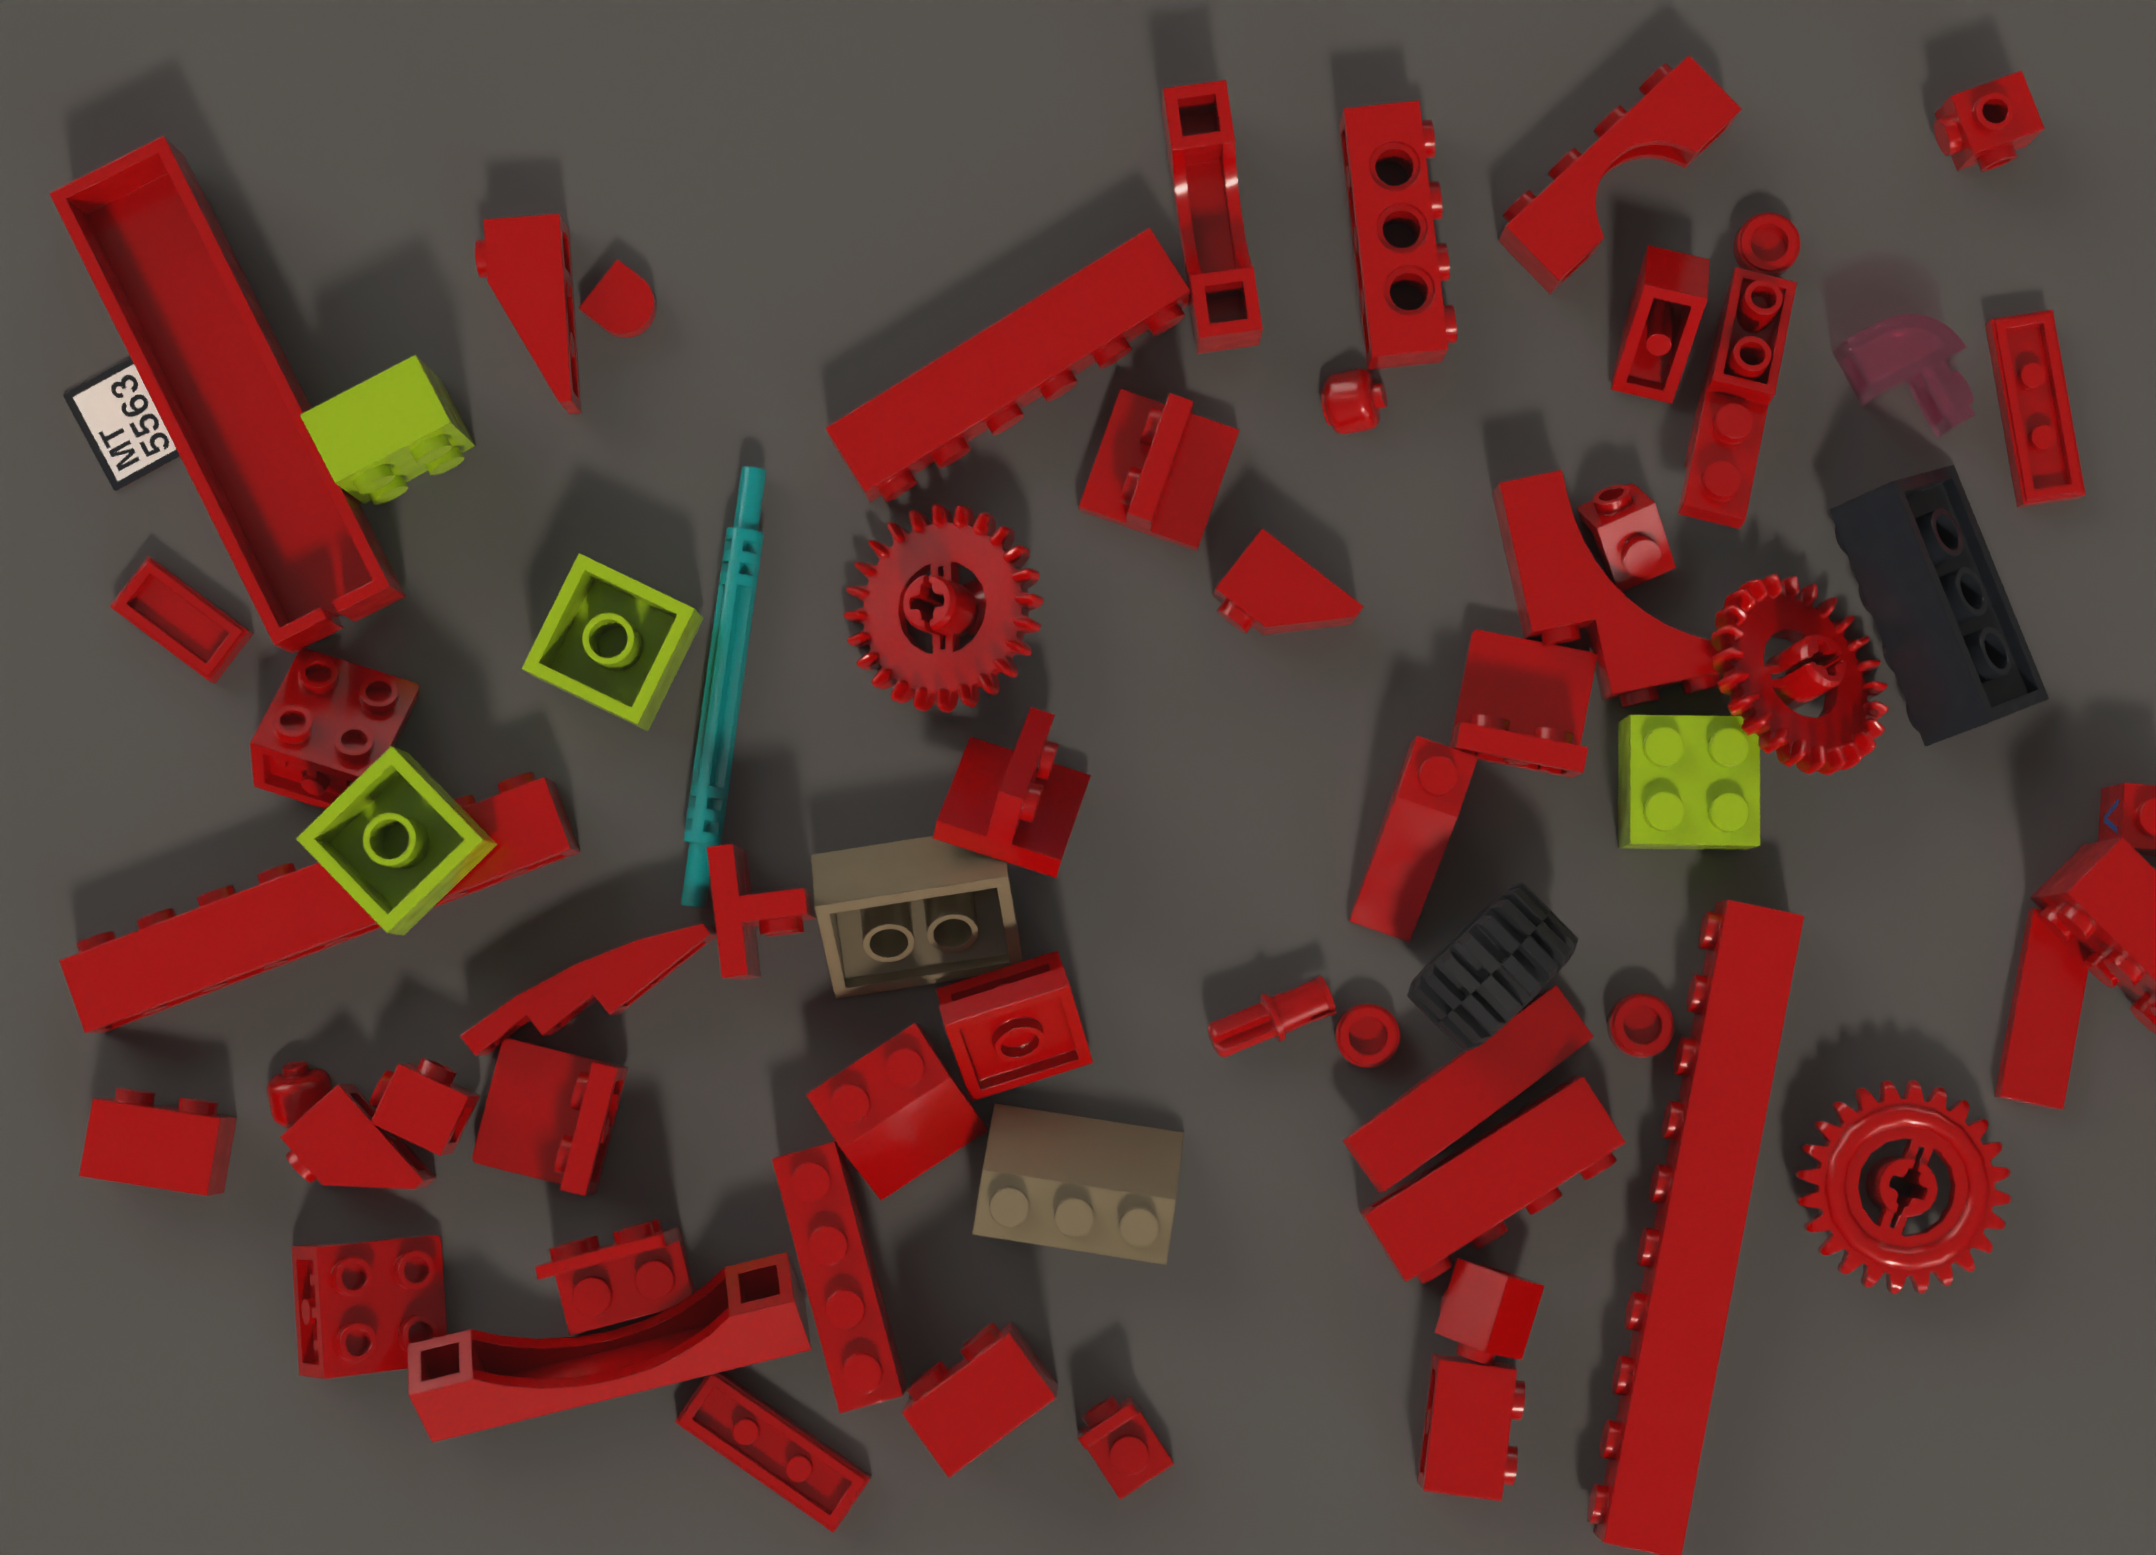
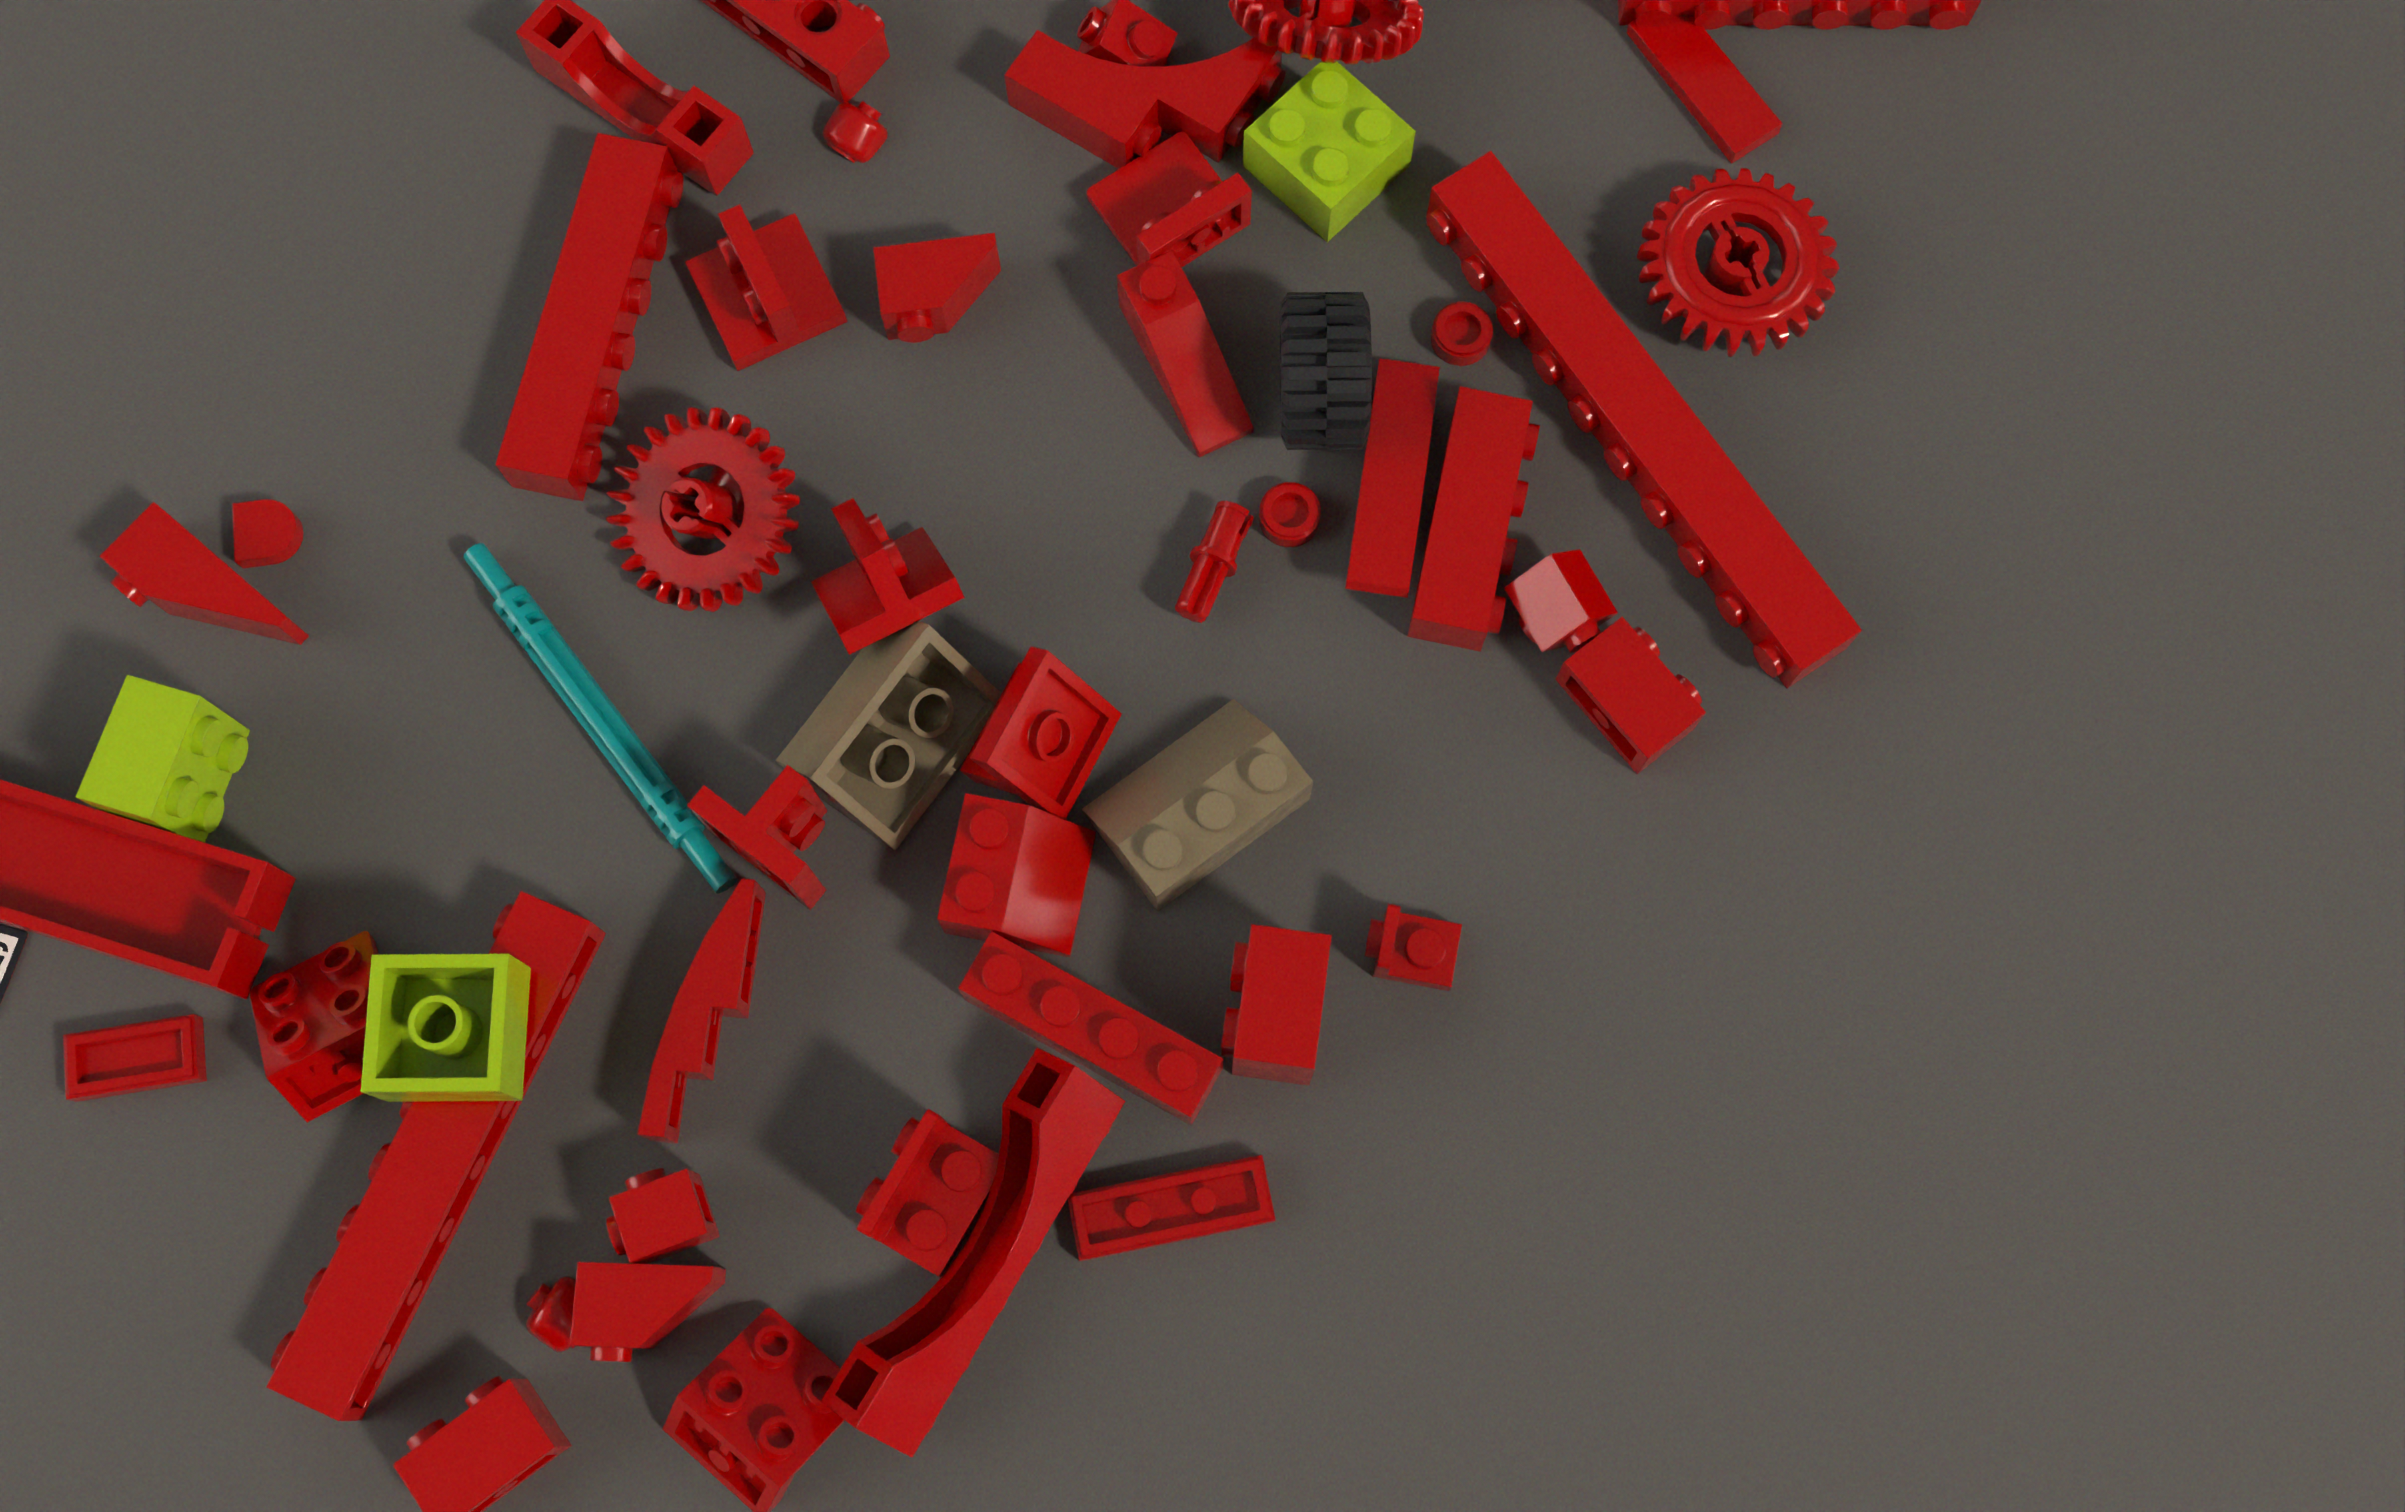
camera: 50 degrees left, 10 degrees down
(550, 1115) = (765, 1133): red bracket -> none
(613, 642) = (481, 753): lime brick -> none

